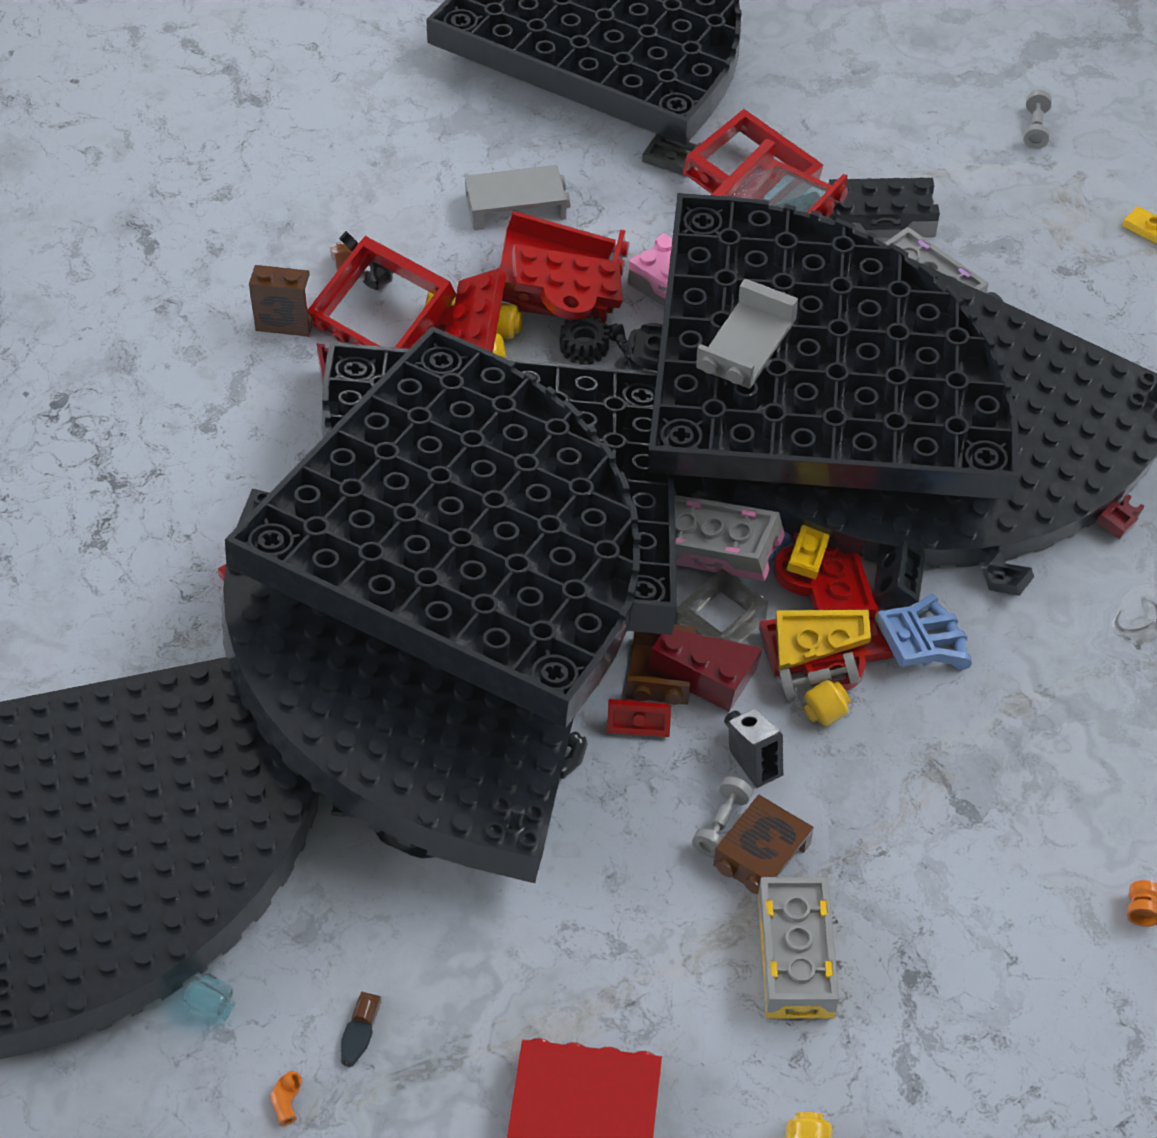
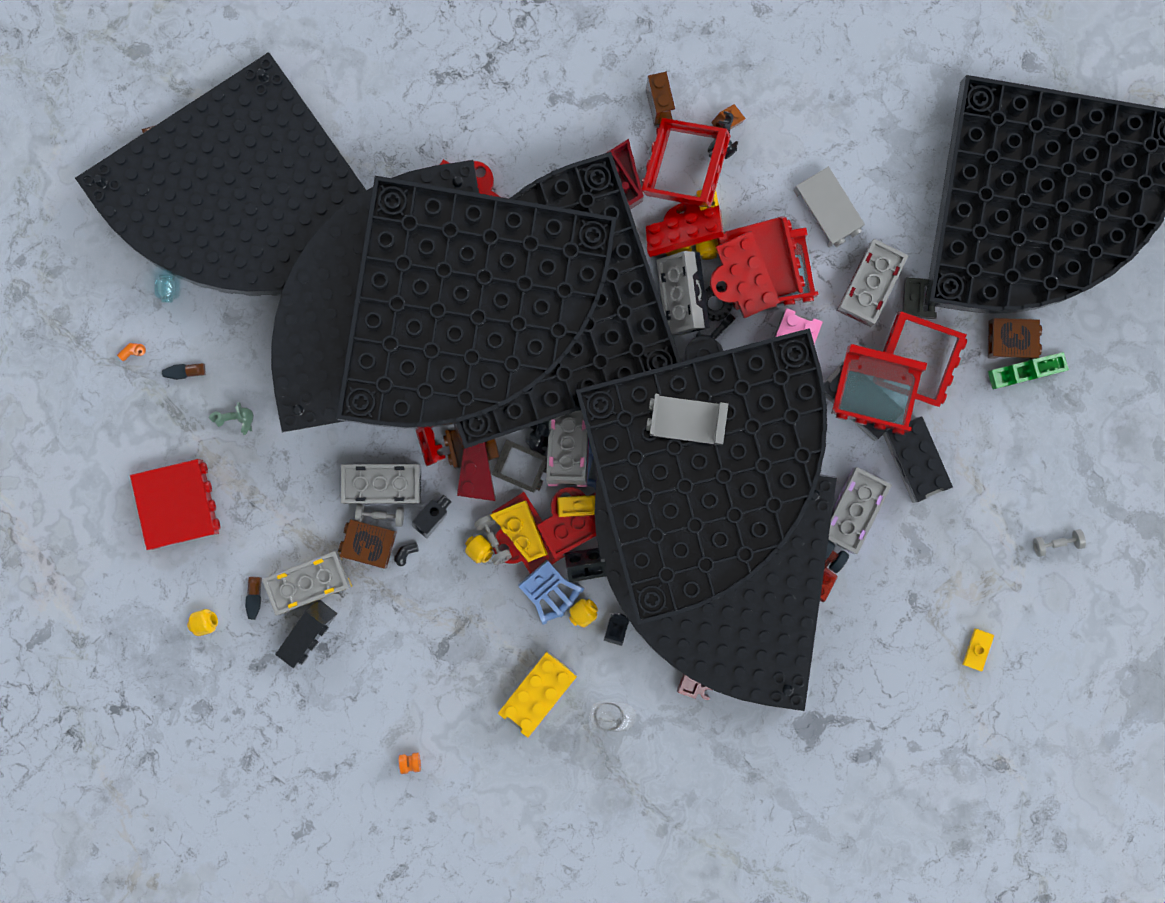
camera: 70 degrees right, 35 degrees up
(478, 950) = (243, 415): none -> sand green piece
(556, 344) = (683, 292): none -> light grey piece
(633, 181) = (872, 283): none -> light grey piece
(674, 791) = (381, 484): none -> light grey piece
(686, 580) = (538, 438): none -> black piece
(764, 87) = (1014, 338): none -> reddish brown panel
(790, 1050) = (253, 599): none -> piece
(796, 806) = (402, 553): none -> black arm
(810, 89) = (1028, 370): none -> green slope
(886, 980) = (306, 633): none -> black wedge
(970, 606) = (583, 612): none -> yellow head
(1078, 698) = (537, 693): none -> yellow piece

